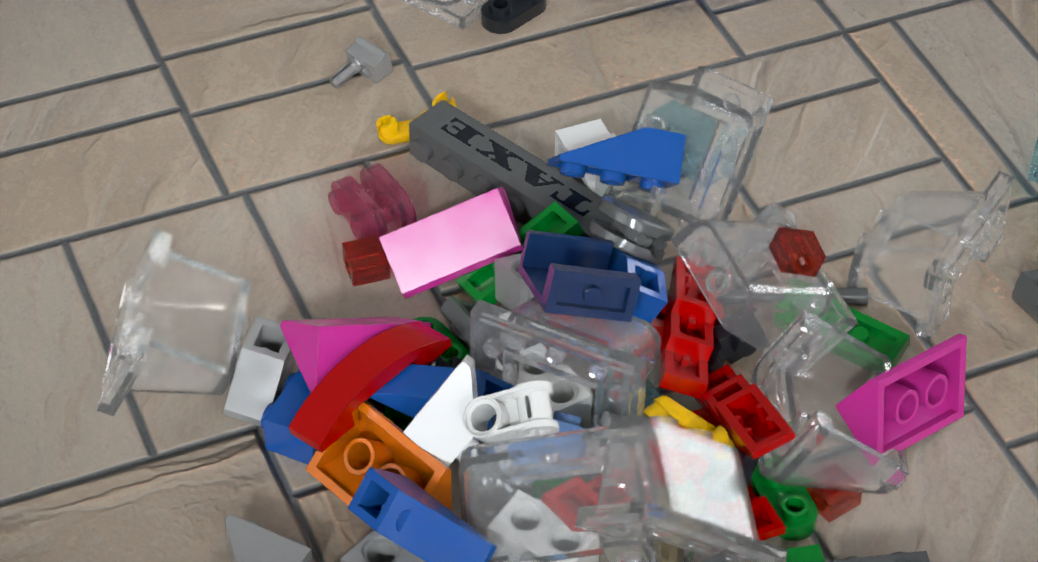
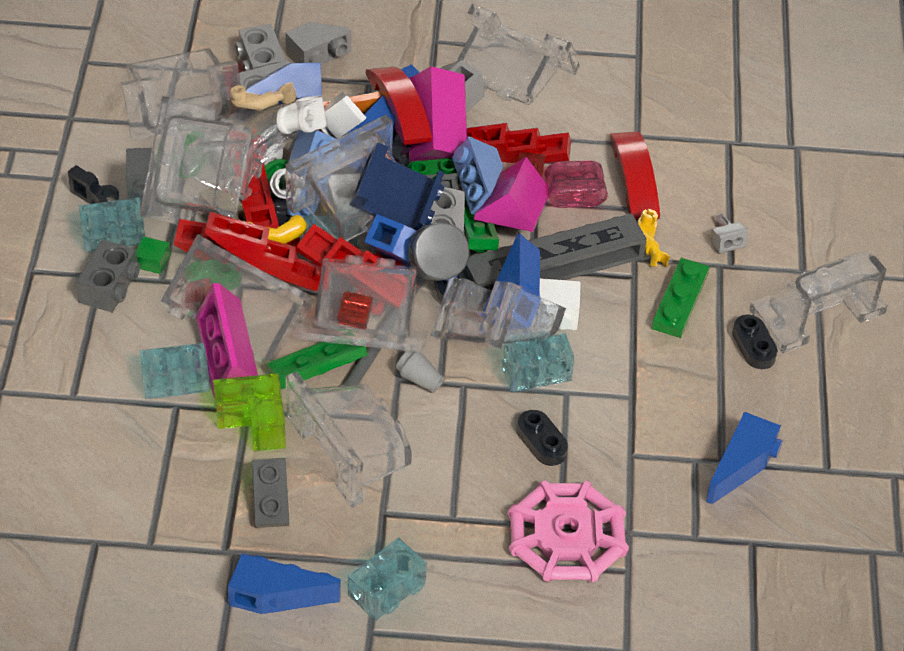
camera: 115 degrees right, 5 degrees up
(261, 184) = (636, 172): none -> red slope
(329, 272) = (510, 143): none -> red slope
(444, 270) = (478, 170): none -> medium blue slope
(490, 77) = (680, 297): none -> green plate
(490, 511) = (242, 99): none -> tan arm
(786, 120) = (541, 434): none -> black plate
(904, 66) = (567, 546): none -> bright pink plate
(976, 444) = (174, 370): none -> clear light blue brick
(986, 327) = (252, 403): none -> clear neon green brick

